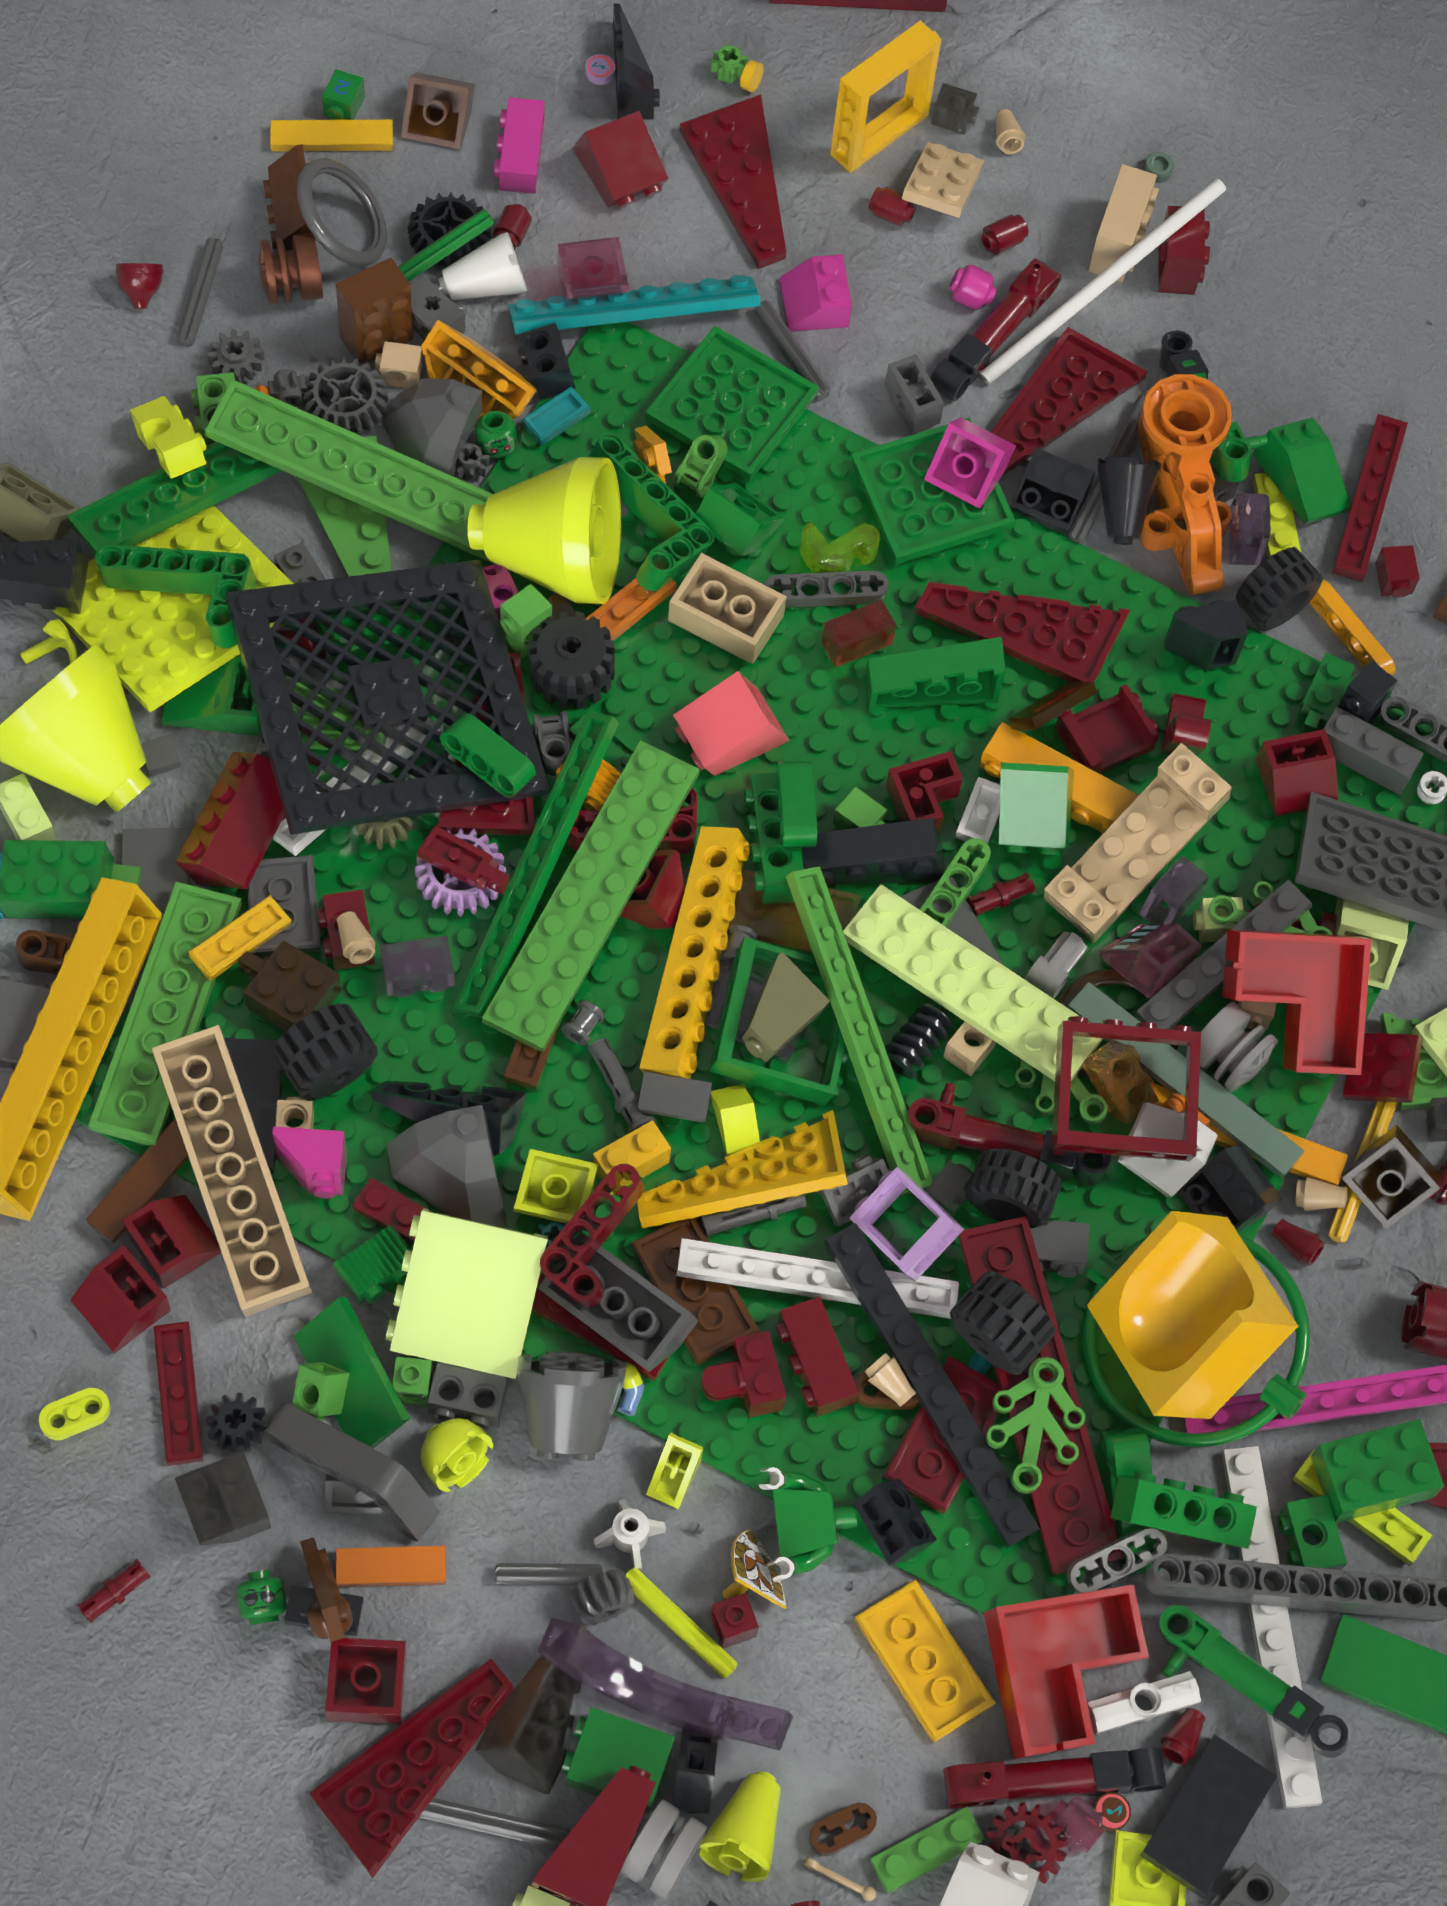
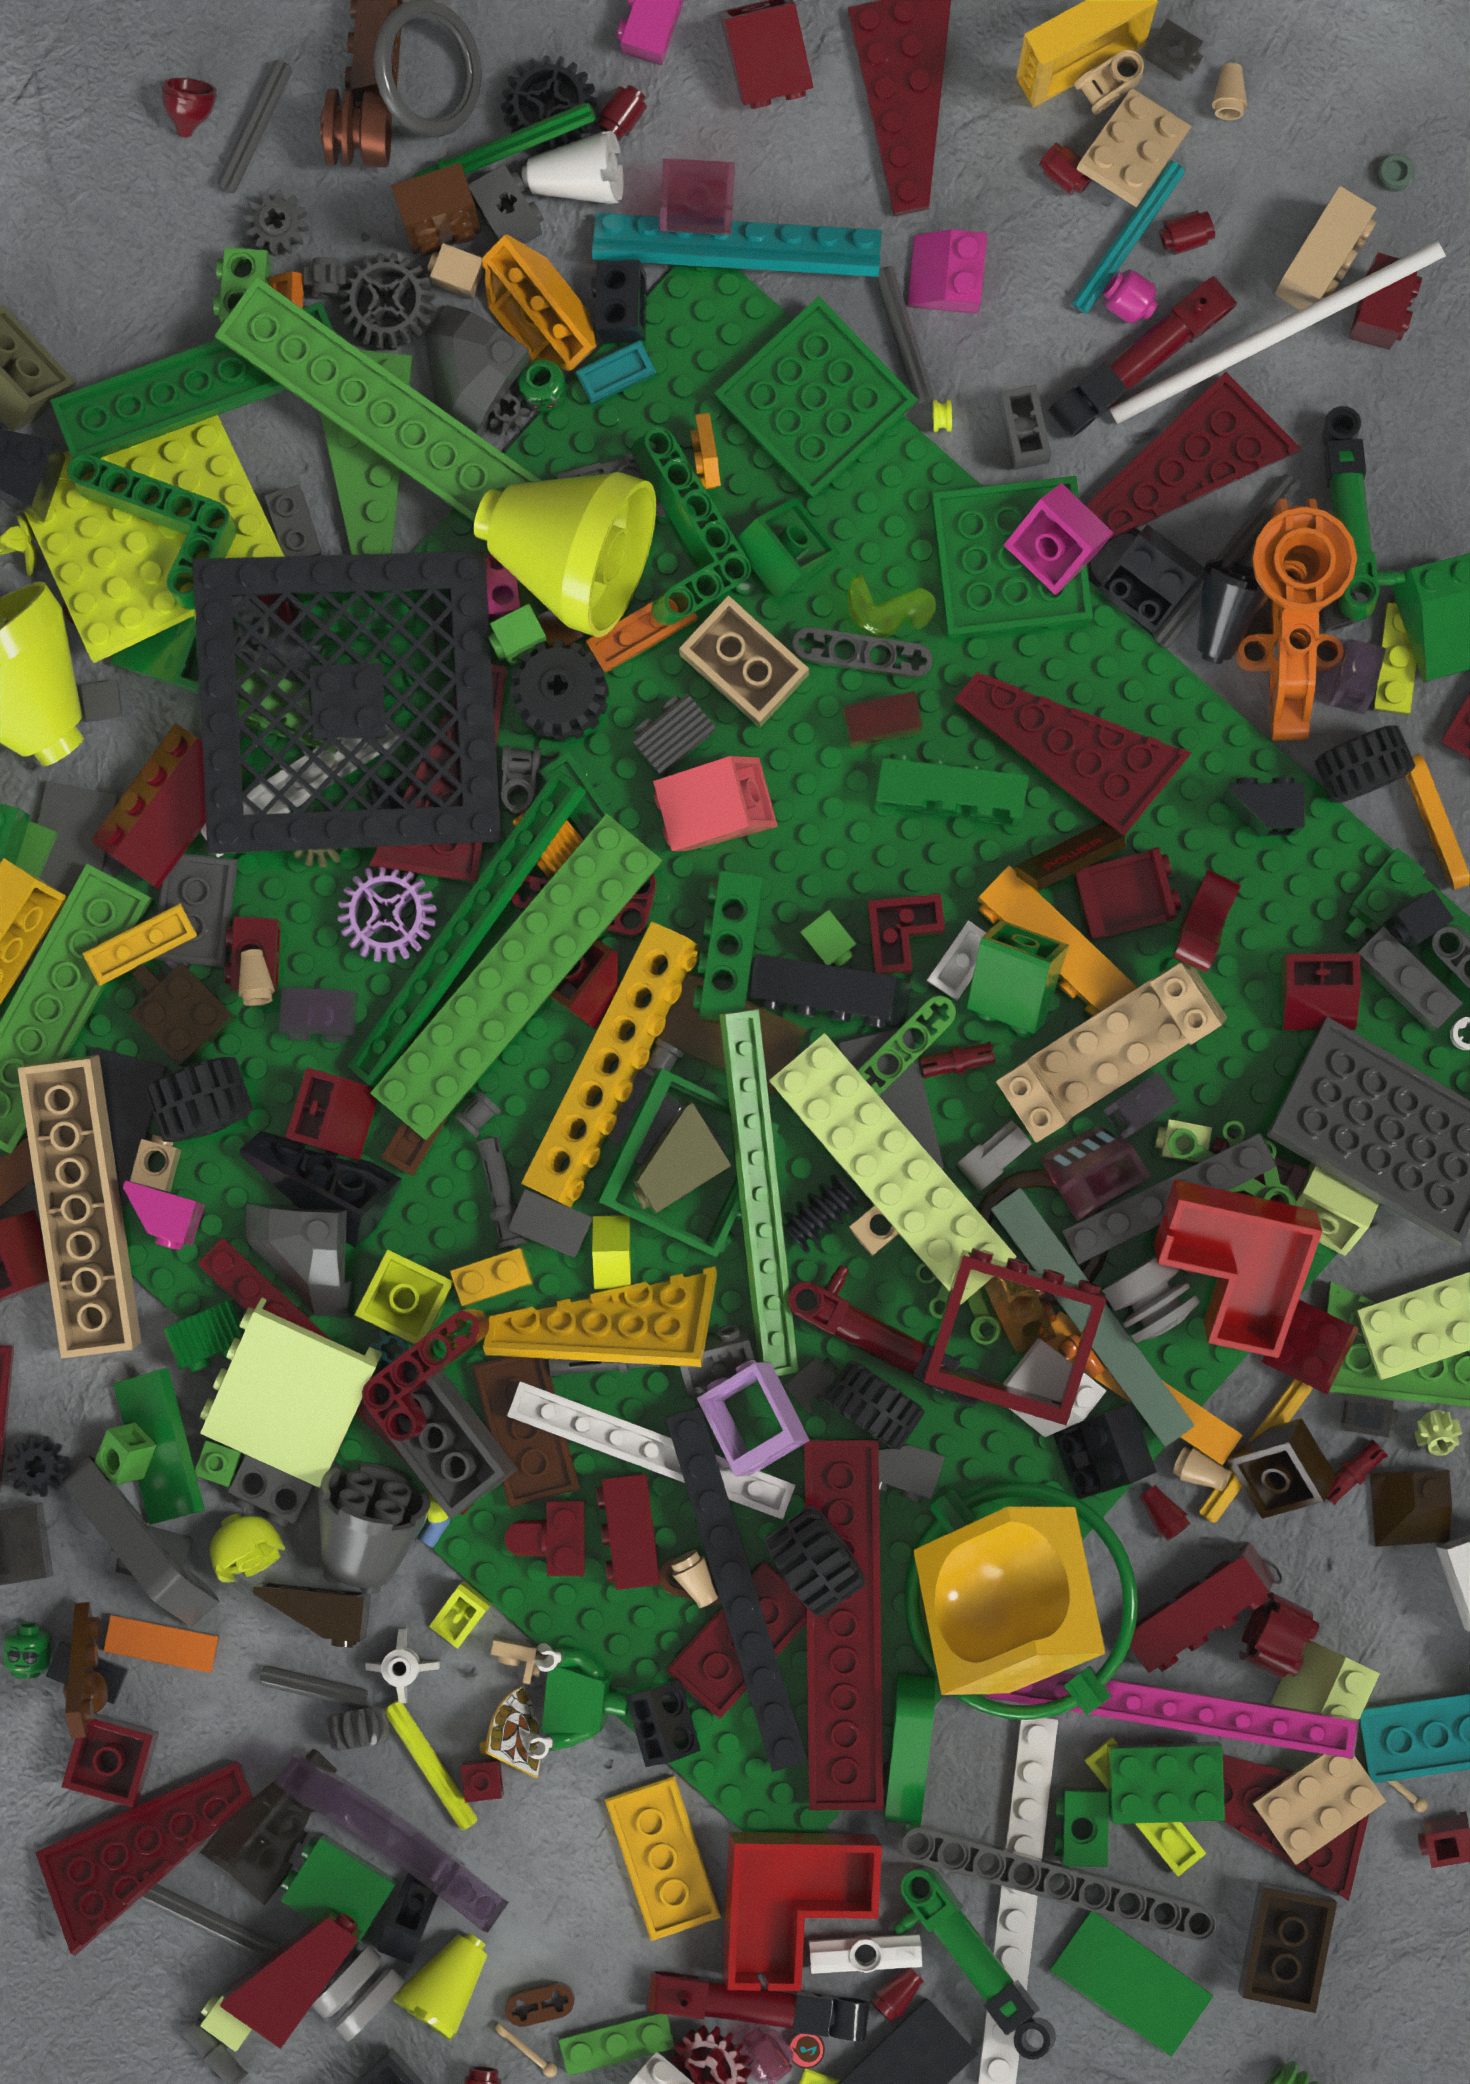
camera: 25 degrees right, 20 degrees up
(174, 439) = (183, 342): neon yellow arch -> none
(450, 1046) = (332, 1114): none -> dark red slope
(462, 860) = (385, 912): dark red hinge -> none
(488, 755) = (437, 800): green beam -> none
(542, 1490) = (326, 1612): none -> dark brown slope
(680, 678) = (672, 734): none -> dark grey brick
(697, 469) = (757, 477): bright green piece -> none
(735, 1494) = (512, 1652): none -> tan bracket
(796, 804) = (755, 924): green beam -> none
(841, 401) = (942, 415): none -> neon yellow bush
(908, 139) = (1106, 85): none -> tan piece
(956, 248) = (1128, 236): none -> teal axle
(1038, 1418) = (831, 1654): bright green plant -> none
(1097, 1580) = (882, 1799): light grey beam -> none
(1136, 1499) = (953, 1784): green brick -> none
(1358, 1313) = (1202, 1609): none -> dark red wedge

